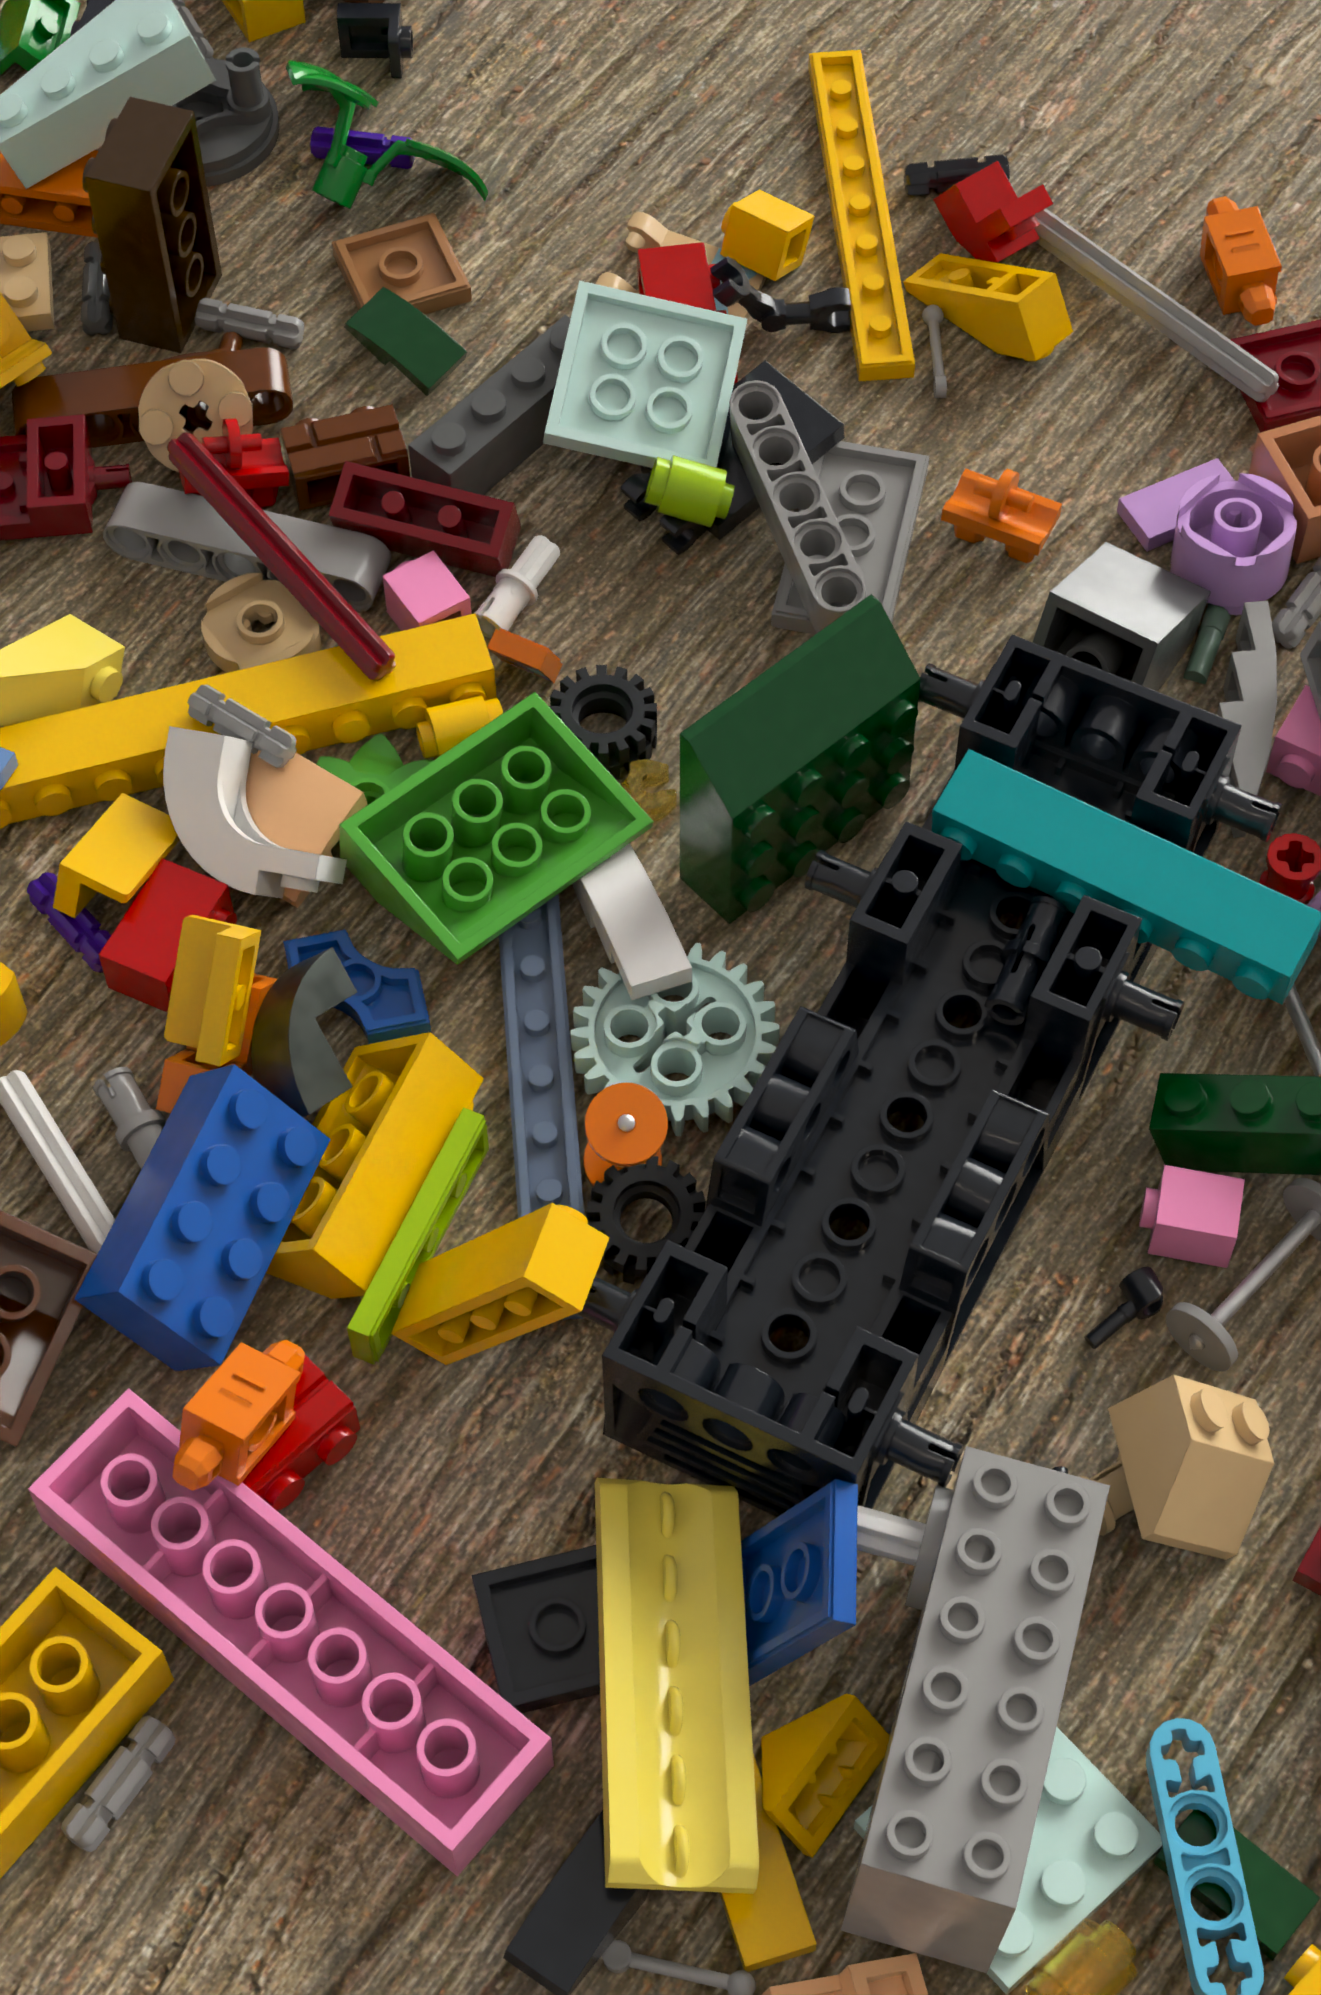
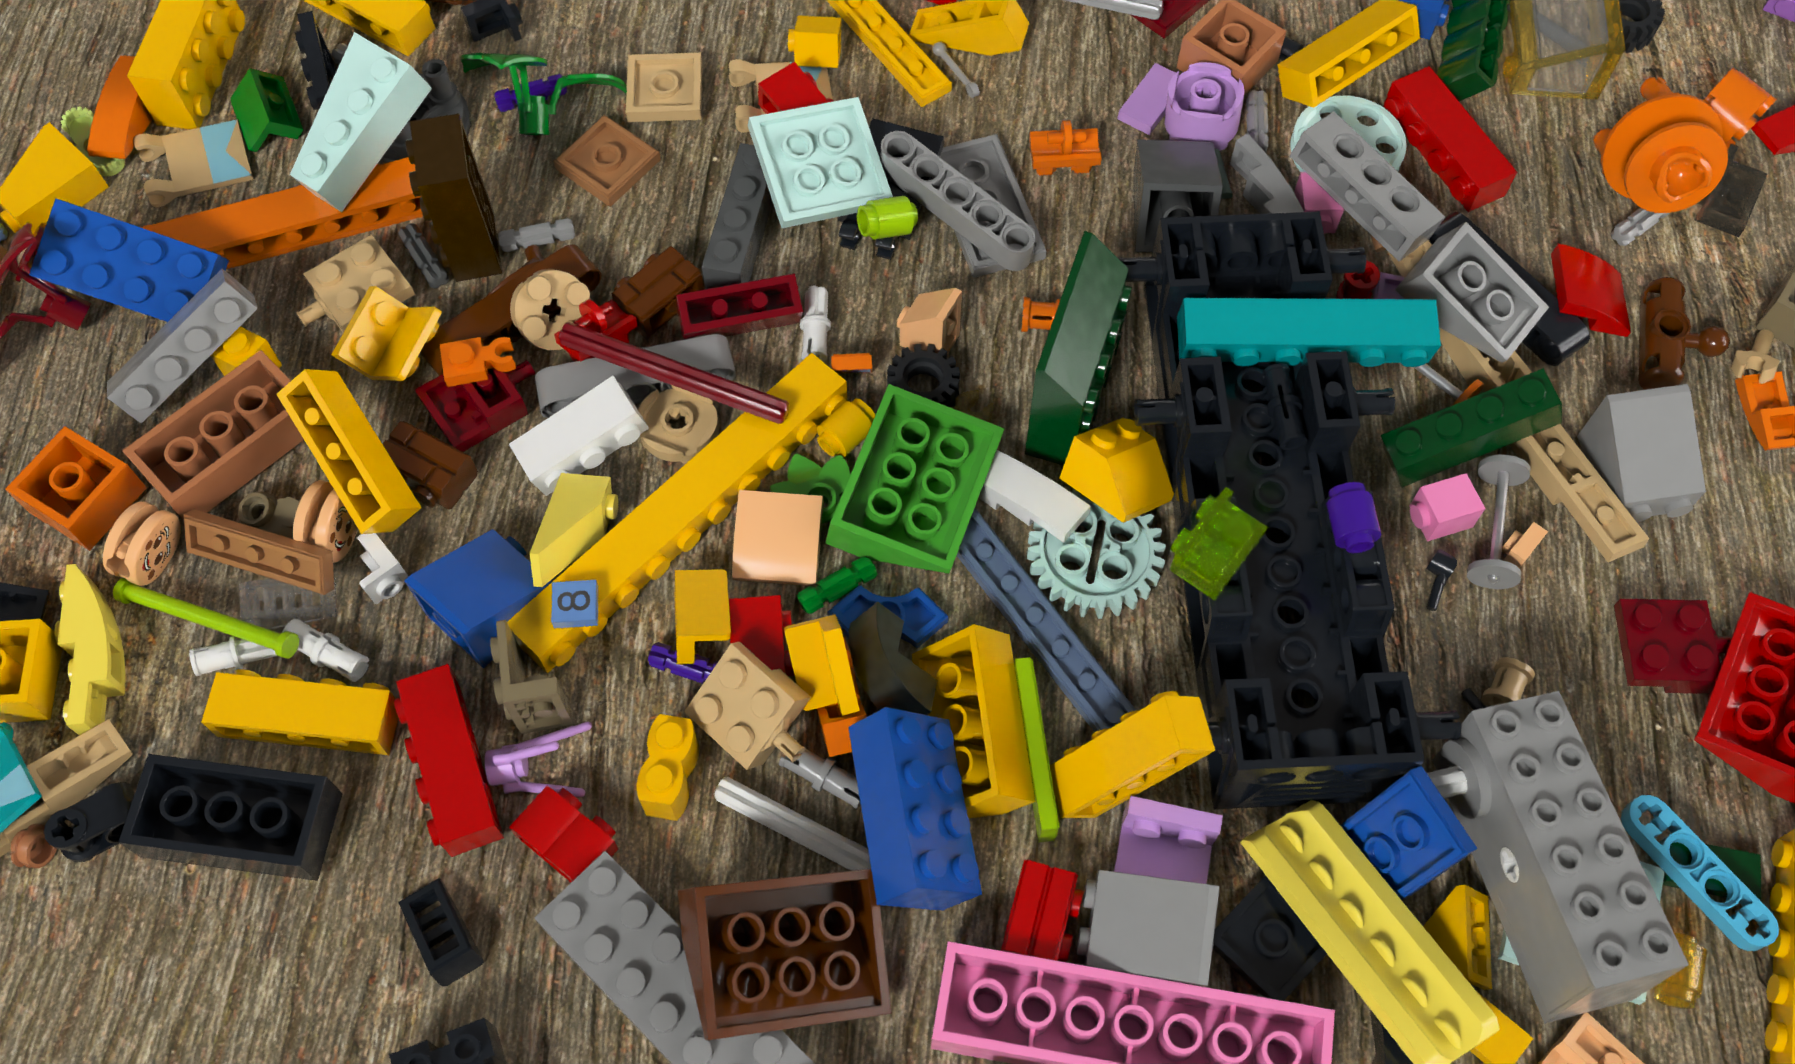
camera: 30 degrees left, 5 degrees up
(53, 427) = (469, 359): none -> orange plate
(96, 999) = (749, 708): none -> tan plate
(127, 579) = (579, 435): none -> white brick
(212, 819) = (747, 563): white arch -> none
(238, 1414) = (1031, 921): orange piece -> none
(239, 722) = (724, 491): light grey axle -> none
(319, 915) = (837, 585): none -> green axle
(400, 1517) = (1149, 926): none -> light grey slope
(406, 338) = (643, 200): dark green slope -> none
(424, 593) = (768, 357): bright pink brick -> none
(490, 1452) = (1166, 841): none -> lavender bracket
(532, 210) = (664, 87): none -> tan plate
(623, 1128) = (1148, 624): orange axle -> none
(635, 1183) = (1160, 644): black tyre -> none
(663, 651) = (931, 320): none -> light nougat slope
(764, 941) = (1118, 469): none -> yellow slope
(775, 1067) = (1216, 545): none -> clear neon green bracket
(823, 311) = (877, 75): black piece -> none
(980, 1123) = (1353, 517): none -> dark purple brick
(1193, 1463) = (1548, 647): tan slope -> none
(1269, 1325) = (1521, 546): none -> light nougat plate

